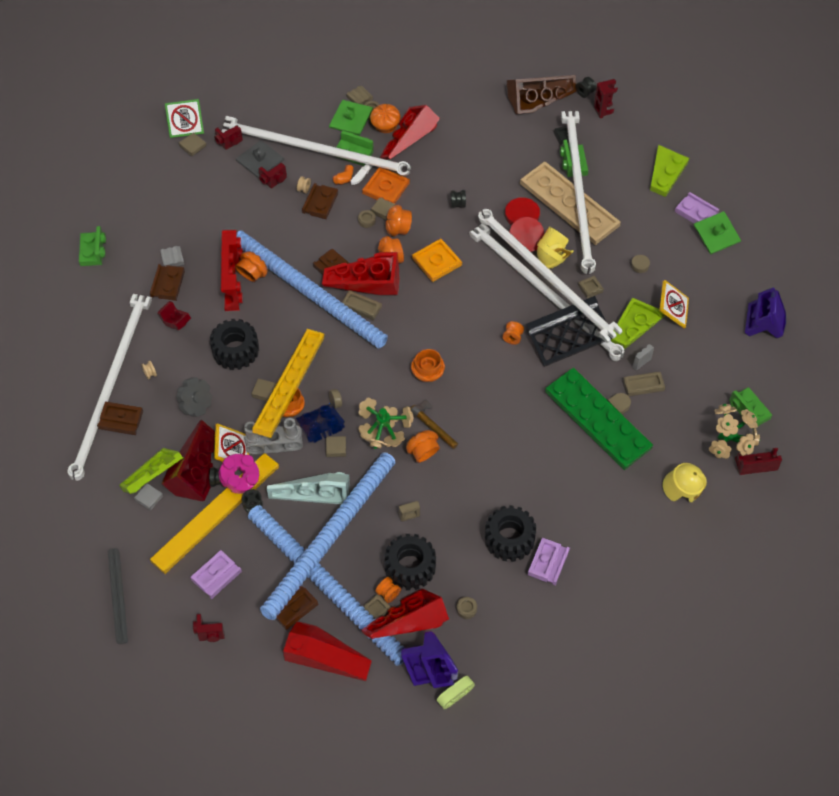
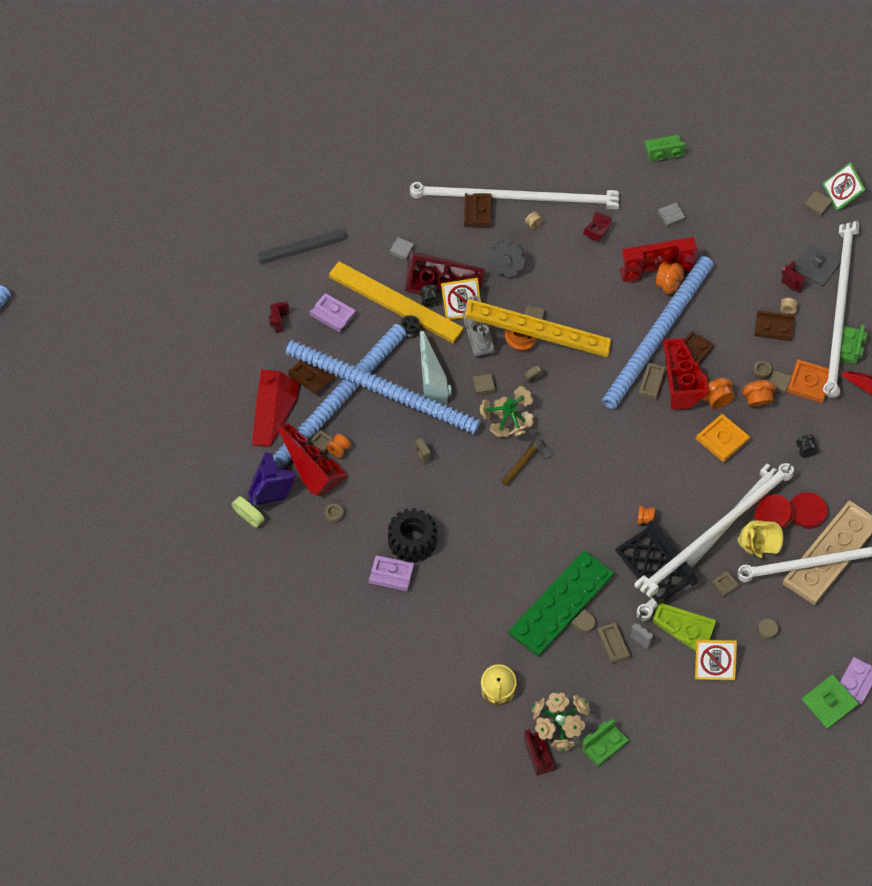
camera: 80 degrees right, 0 degrees up
(153, 467) = (426, 242): lime wing -> none
(167, 282) = (640, 216): reddish brown plate -> none
(228, 138) = (831, 231): dark red bracket -> none
(231, 332) = (575, 268): black tyre -> none
(243, 463) = (436, 297): dark pink plate -> none
(319, 421) = (504, 366): clear blue hinge -> none
(344, 177) = (811, 342): orange arm -> none
(361, 174) = (819, 355): white piece -> none
(406, 547) = (368, 470): black tyre -> none
(423, 445) = (493, 451): orange piece -> none
(428, 365) = (587, 445): orange piece -> none
(766, 314) = (721, 753): dark purple piece -> none

